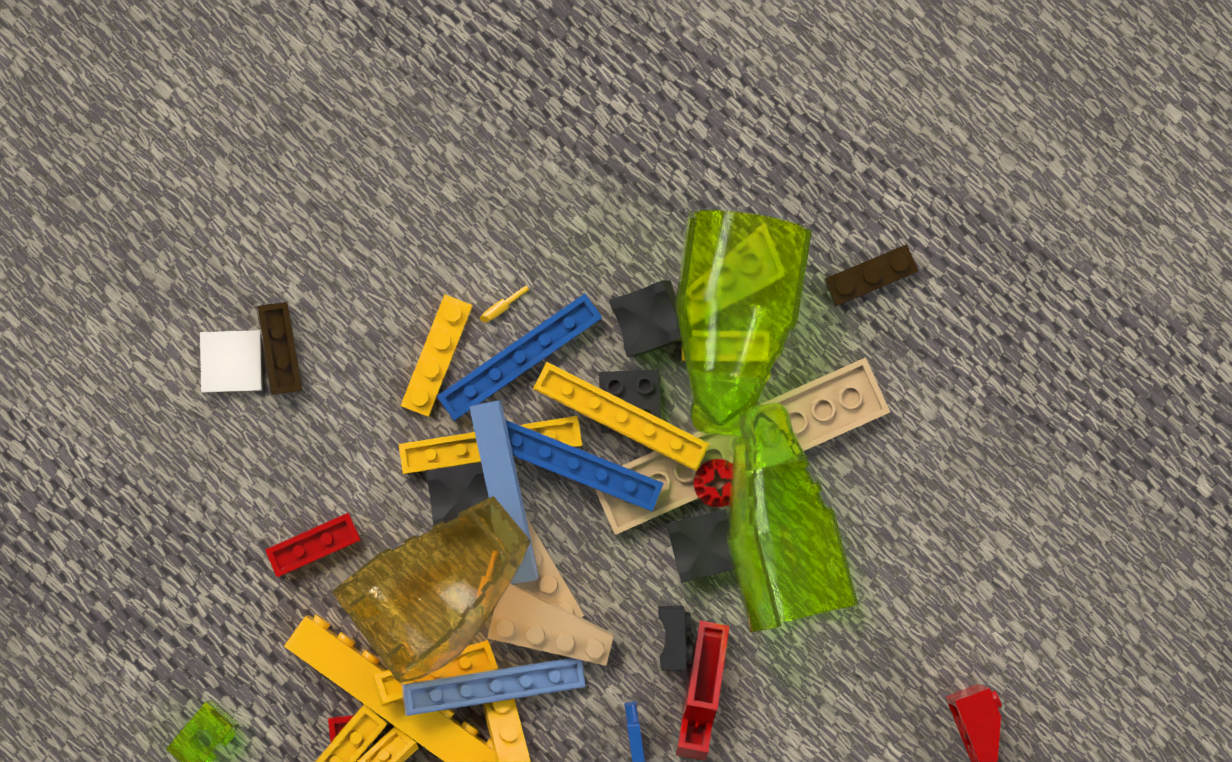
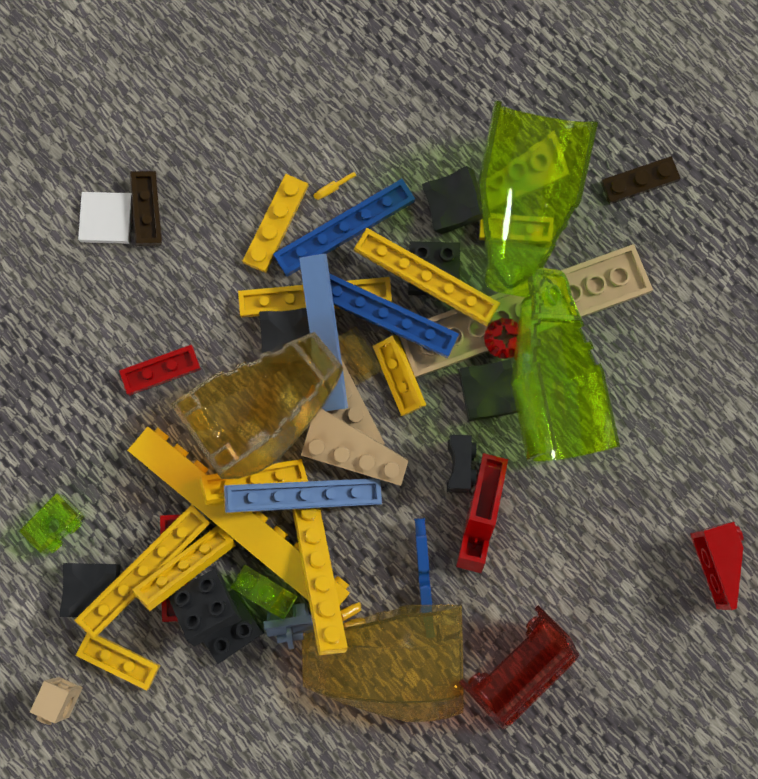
camera: 10 degrees right, 5 degrees down
(546, 510) = (358, 355): none -> clear yellow plate
(596, 533) = (399, 375): none -> yellow plate

